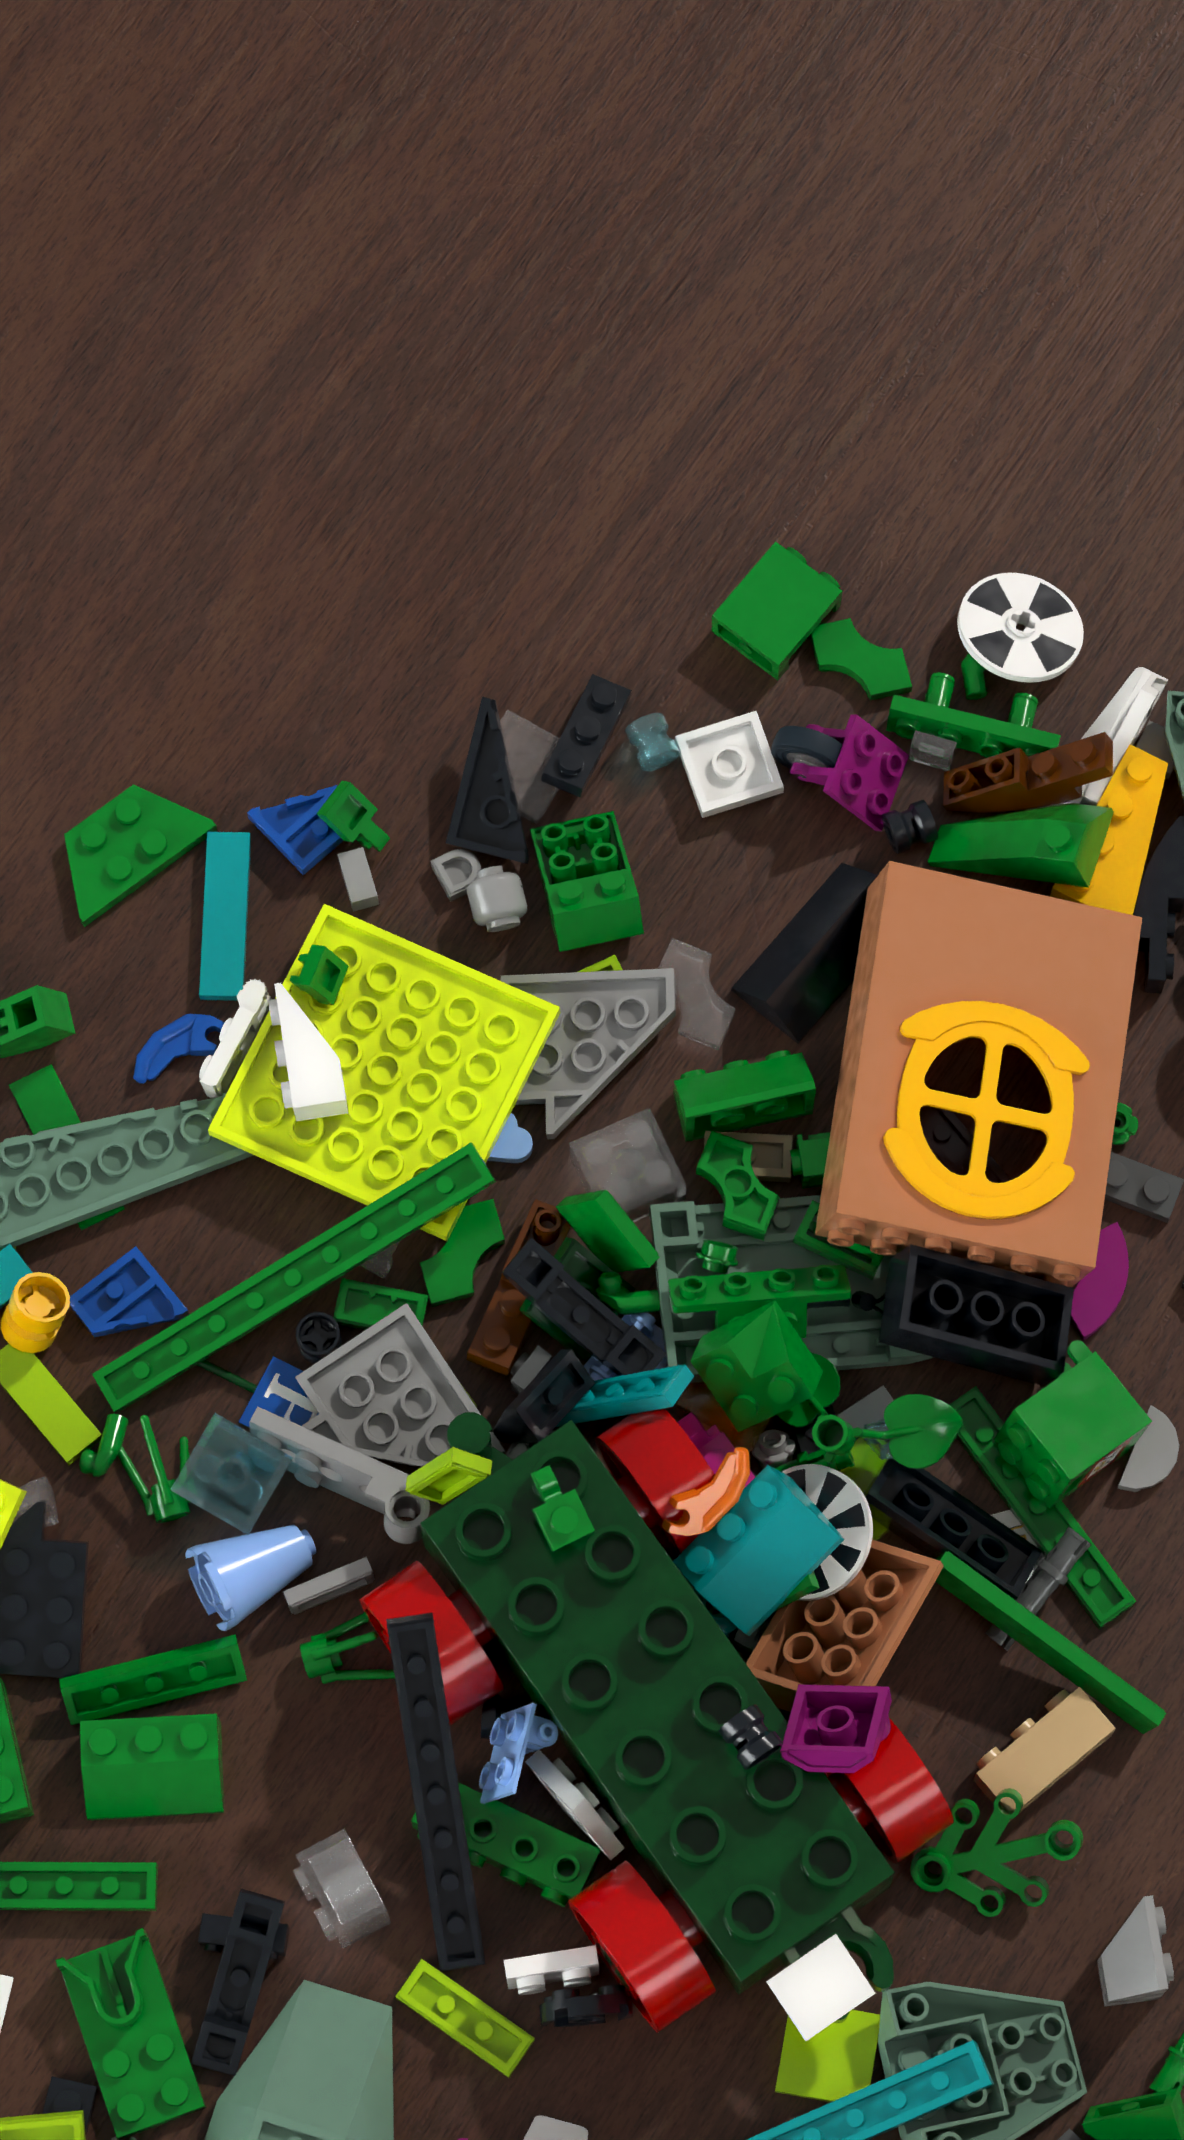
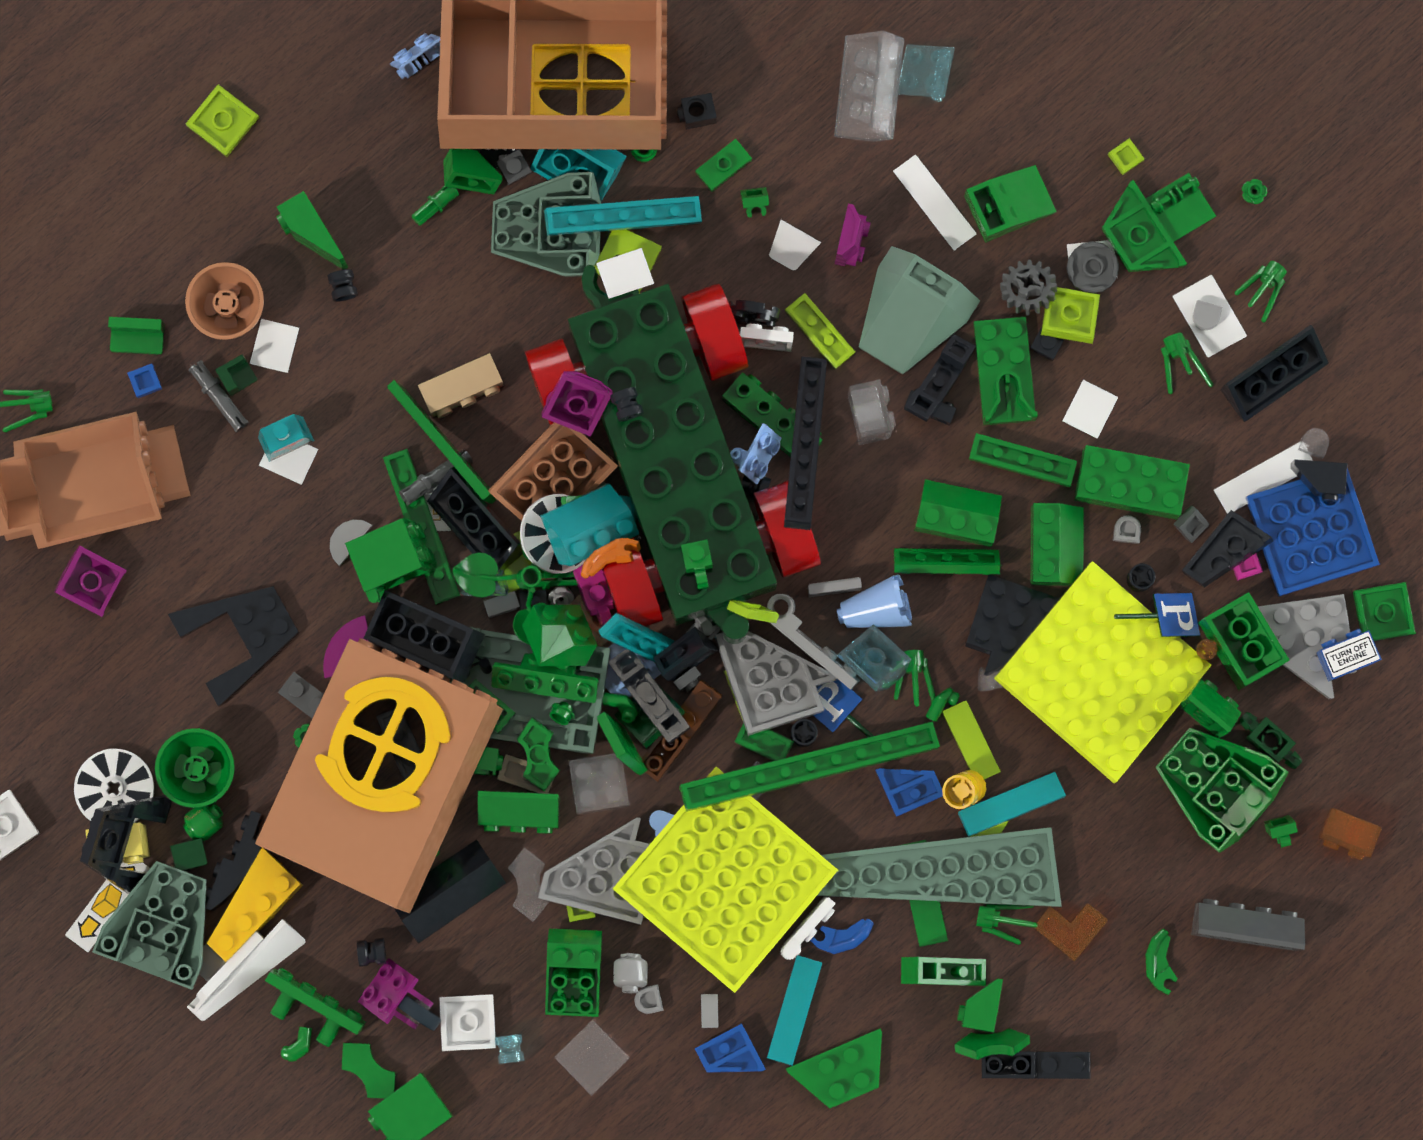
camera: 170 degrees left, 10 degrees up
(312, 1066) = (768, 885): white slope -> none
(321, 974) = (748, 942): green tile -> none
(324, 1654) = (846, 548): green plant -> none
(350, 817) = (704, 1046): green plate -> none
(452, 1269) = (718, 753): green tile -> none
(486, 805) = (620, 1033): black wing -> none
(577, 1802) = (729, 420): white plate -> none
(586, 735) = (548, 1063): black plate -> none
(932, 750) = (343, 996): clear tile -> none
(990, 635) = (247, 1067): white piece -> none
(990, 1857) = (506, 334): green plant -> none
(1027, 782) = (292, 958): reddish brown slope -> none
(1035, 844) = (302, 916): green wedge -> none
(1133, 1962) = (448, 259): light grey slope -> none

